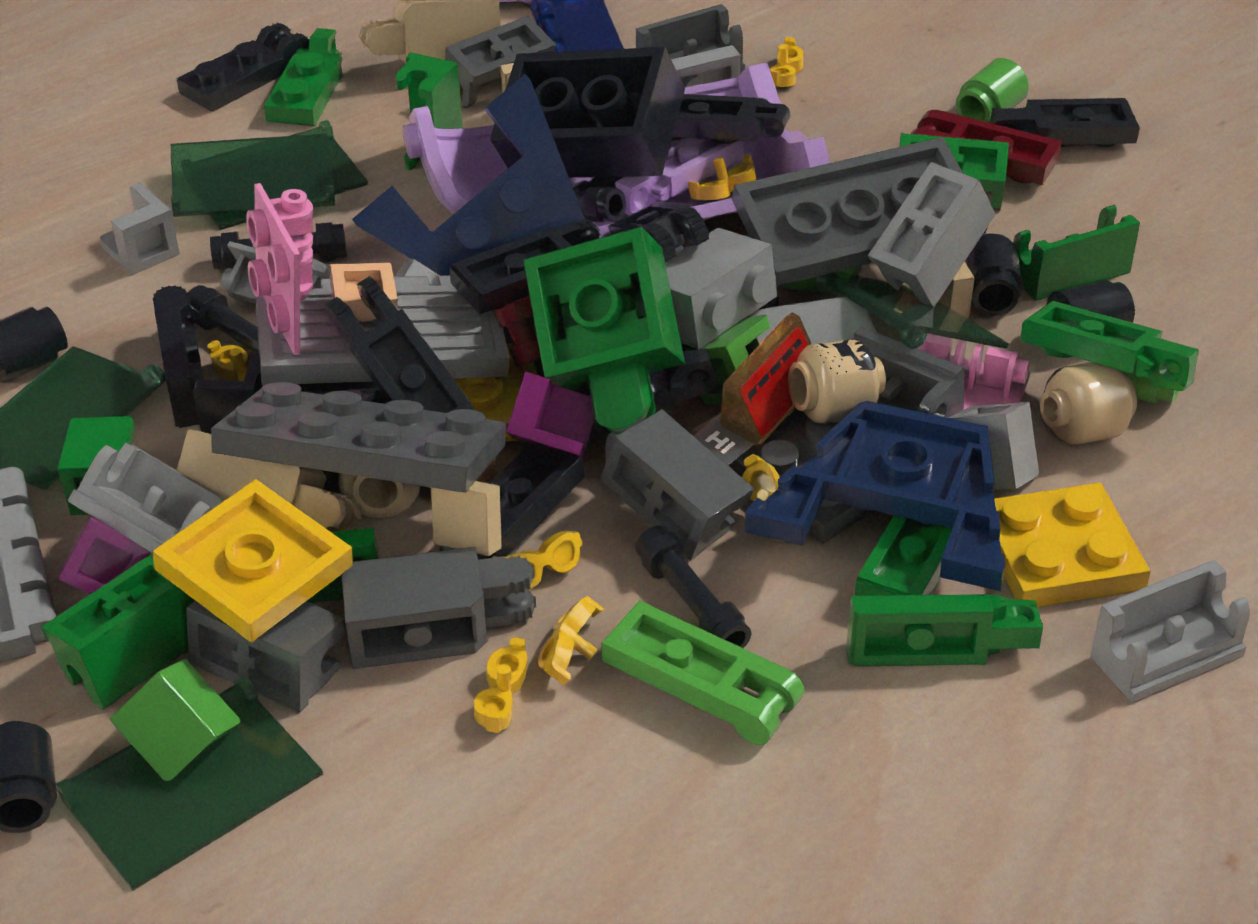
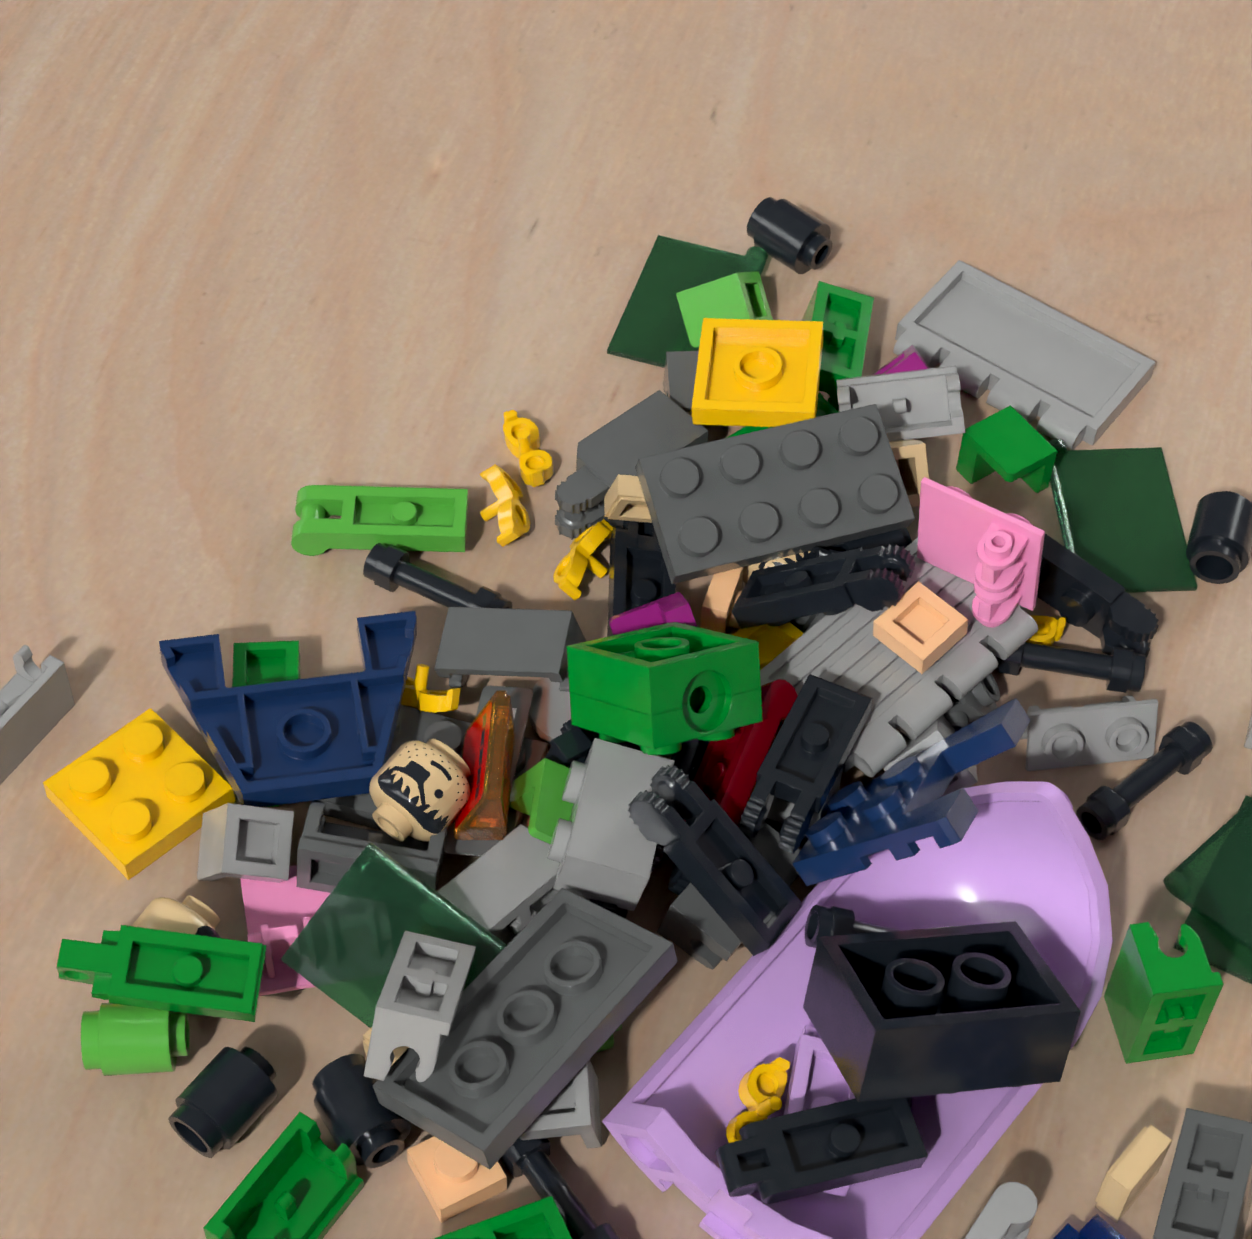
camera: 145 degrees right, 10 degrees up
(938, 629) = (236, 613): green hinge -> none

